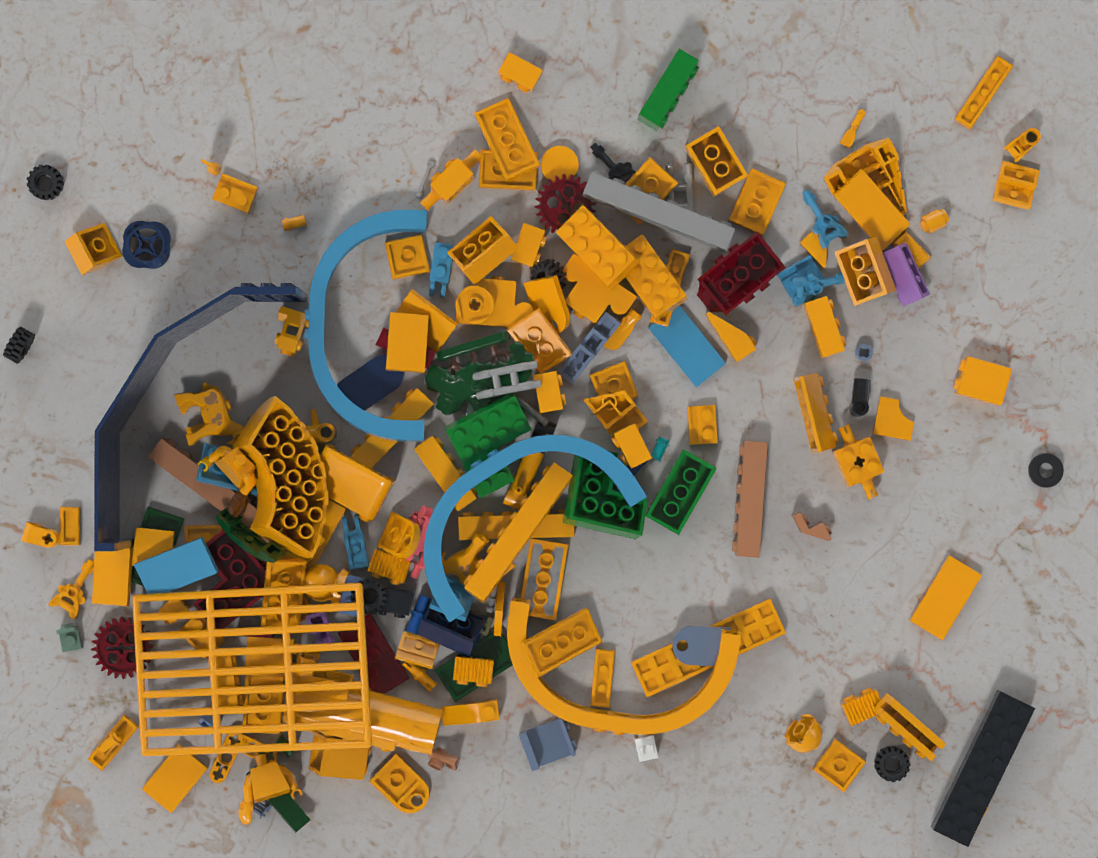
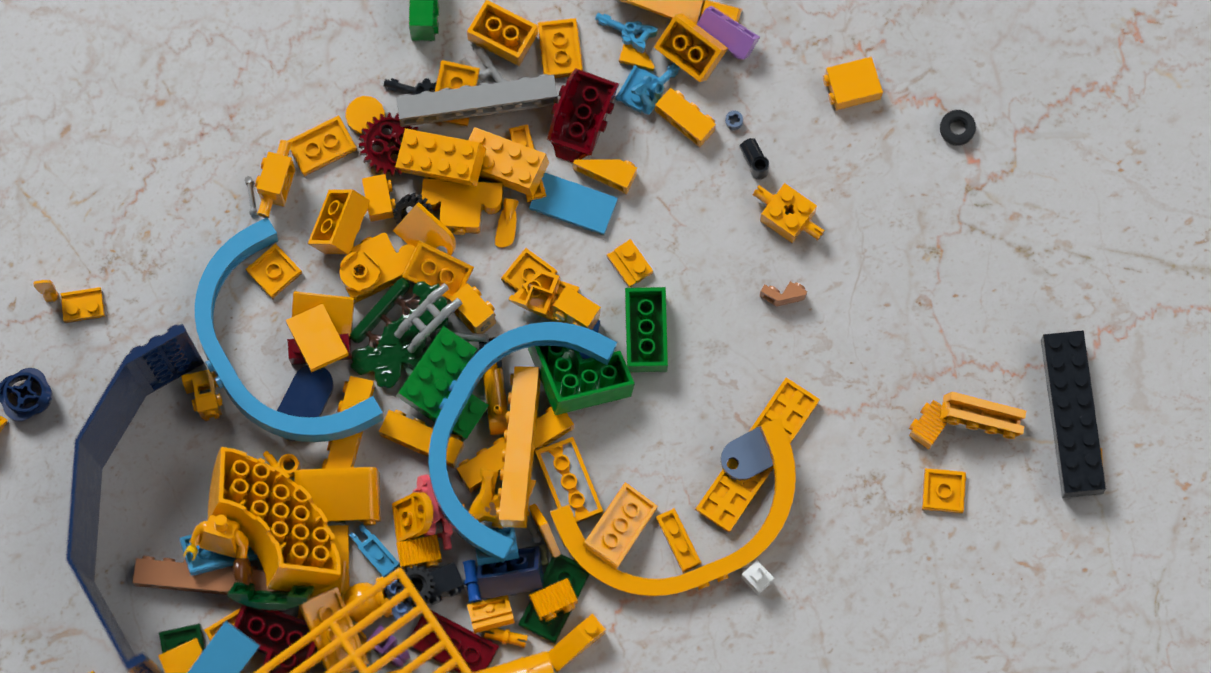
camera: 30 degrees left, 15 degrees down
(214, 412) = (171, 506): light orange animal -> none
(294, 222) = (152, 299): light orange pin -> none
(440, 268) = (310, 262): dark azure hinge -> none
(507, 139) = (305, 119): light orange tile -> none
(520, 73) = (283, 57): light orange brick -> none
(547, 743) = (665, 628): sand blue panel -> none
(589, 347) = (487, 253): sand blue slope -> none
(659, 448) = (604, 302): teal pin -> none
(751, 499) = (713, 300): nougat brick -> none
(805, 734) = (895, 478): light orange cylinder -> none
(814, 412) = (721, 192): light orange slope -> none
(891, 421) = (796, 164): light orange tile -> none
(903, 767) = (981, 468): black tyre -> none
(945, 597) = (942, 287): light orange tile -> none

